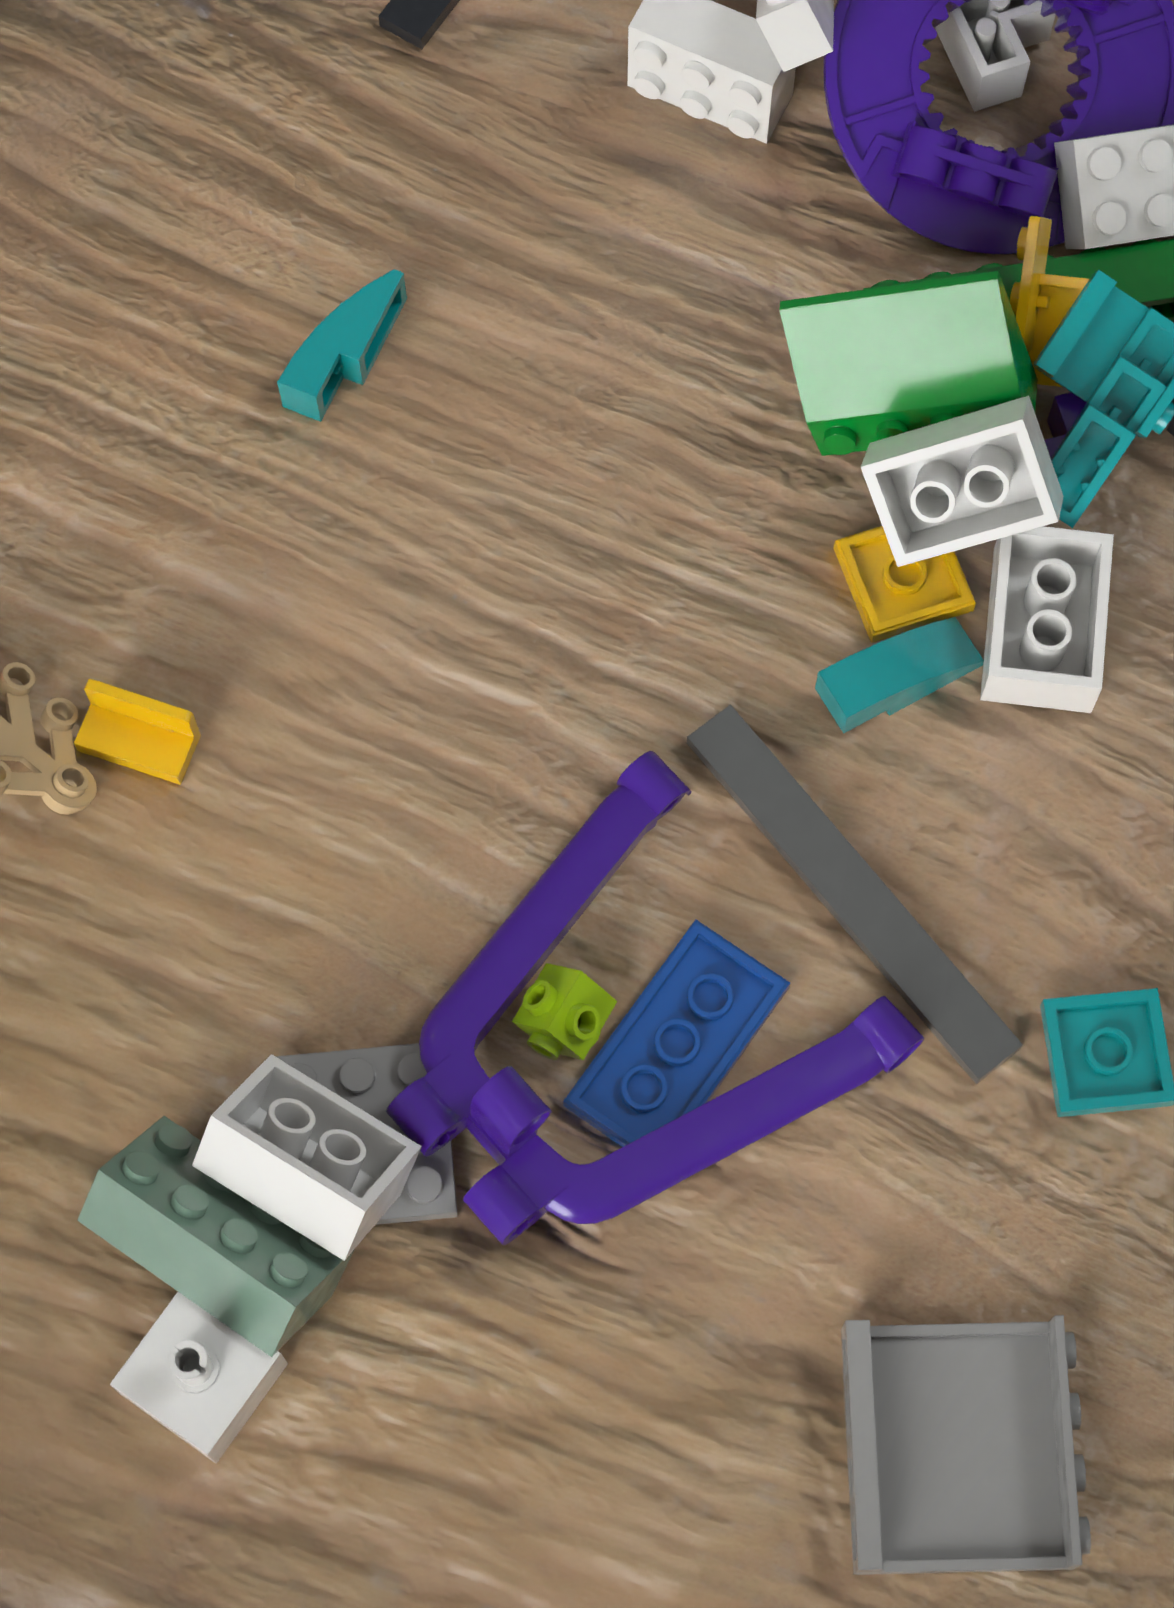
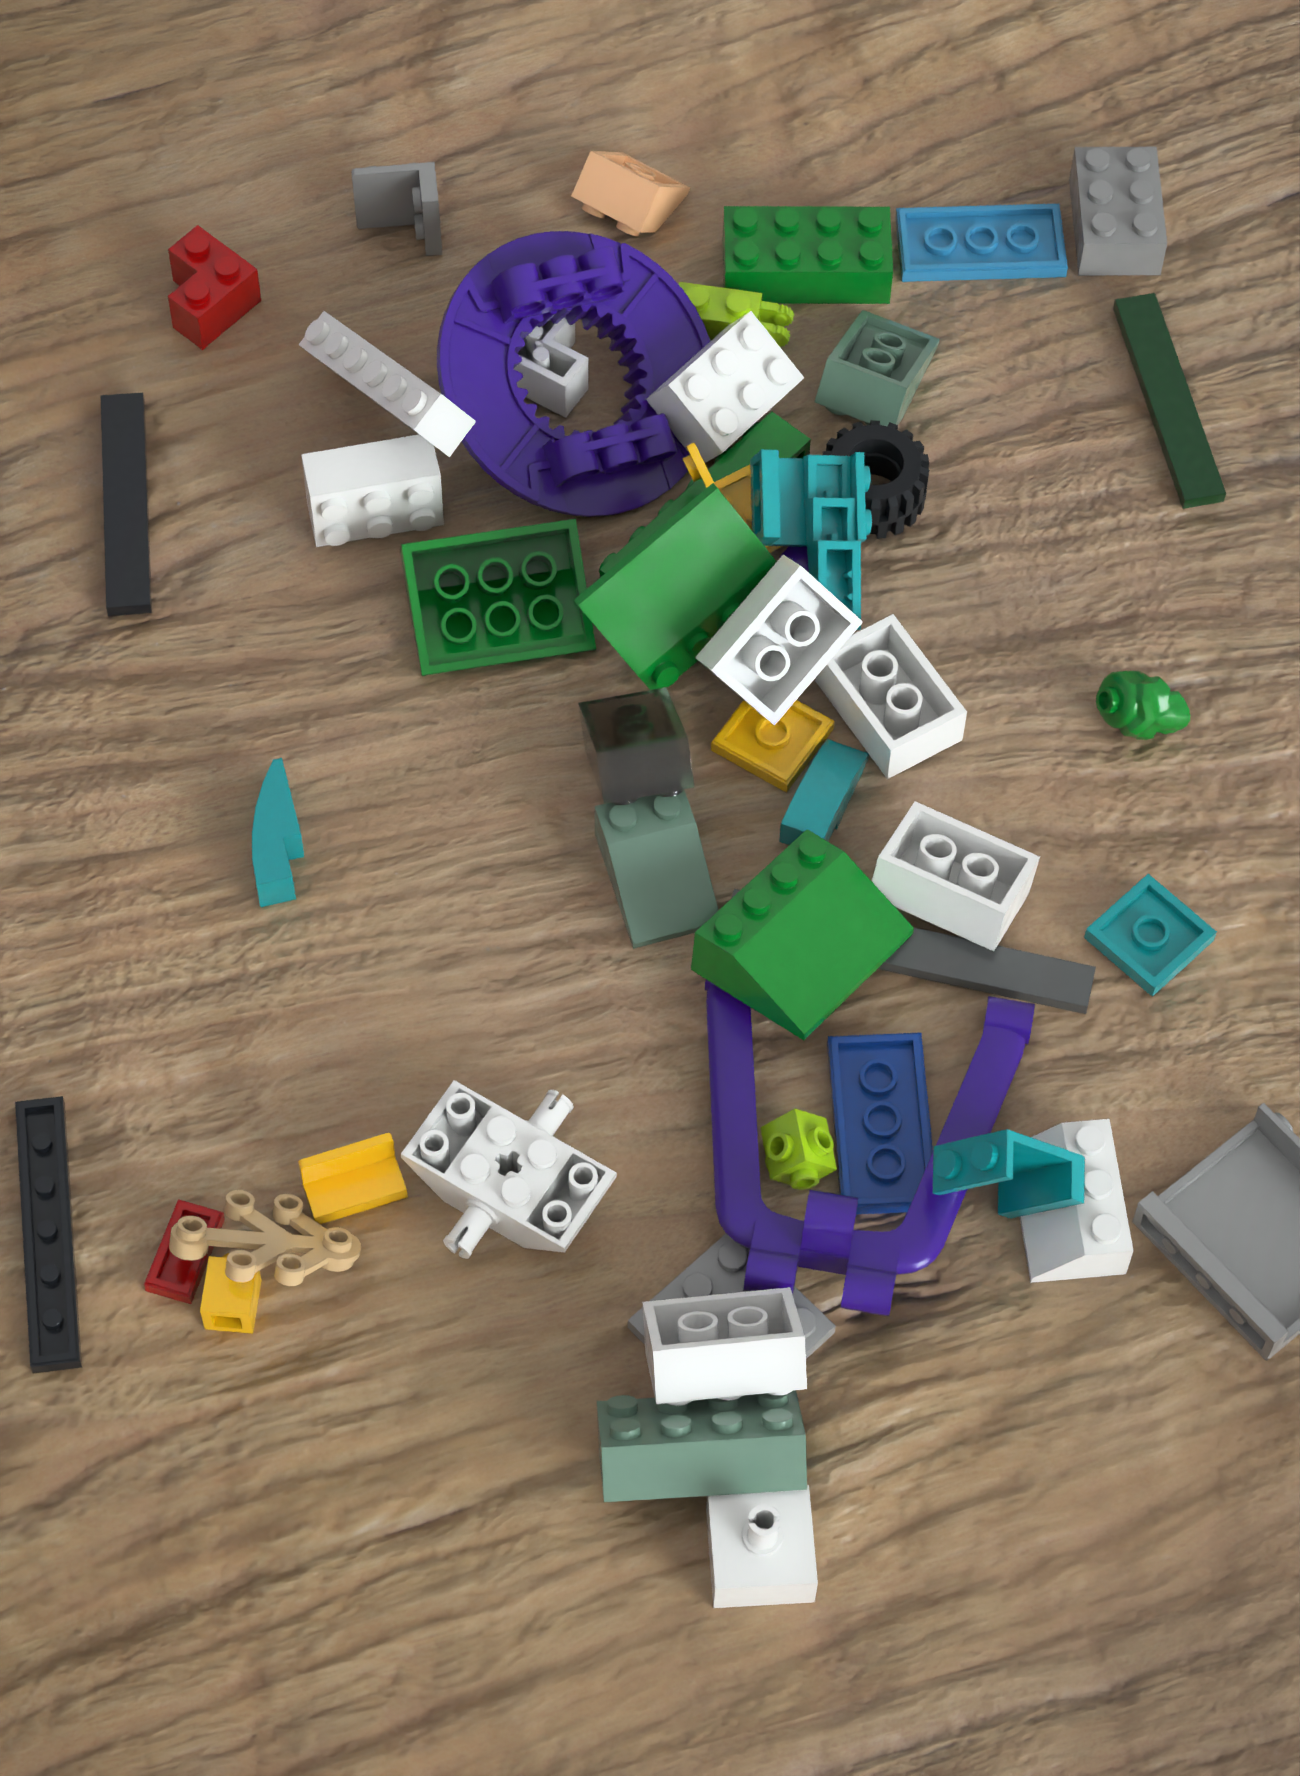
camera: 40 degrees left, 10 degrees down
(264, 780) = (474, 1143): none -> white slope
(673, 628) = (656, 867): none -> sand green slope
(738, 493) = (636, 746): none -> clear smoke brick
(740, 801) = (800, 936): none -> green slope
(741, 240) = (497, 597): none -> green slope
(751, 1216) = (1028, 1171): none -> teal panel
(787, 1266) = (1084, 1237): none -> white slope
(949, 848) = (954, 875): none -> white brick

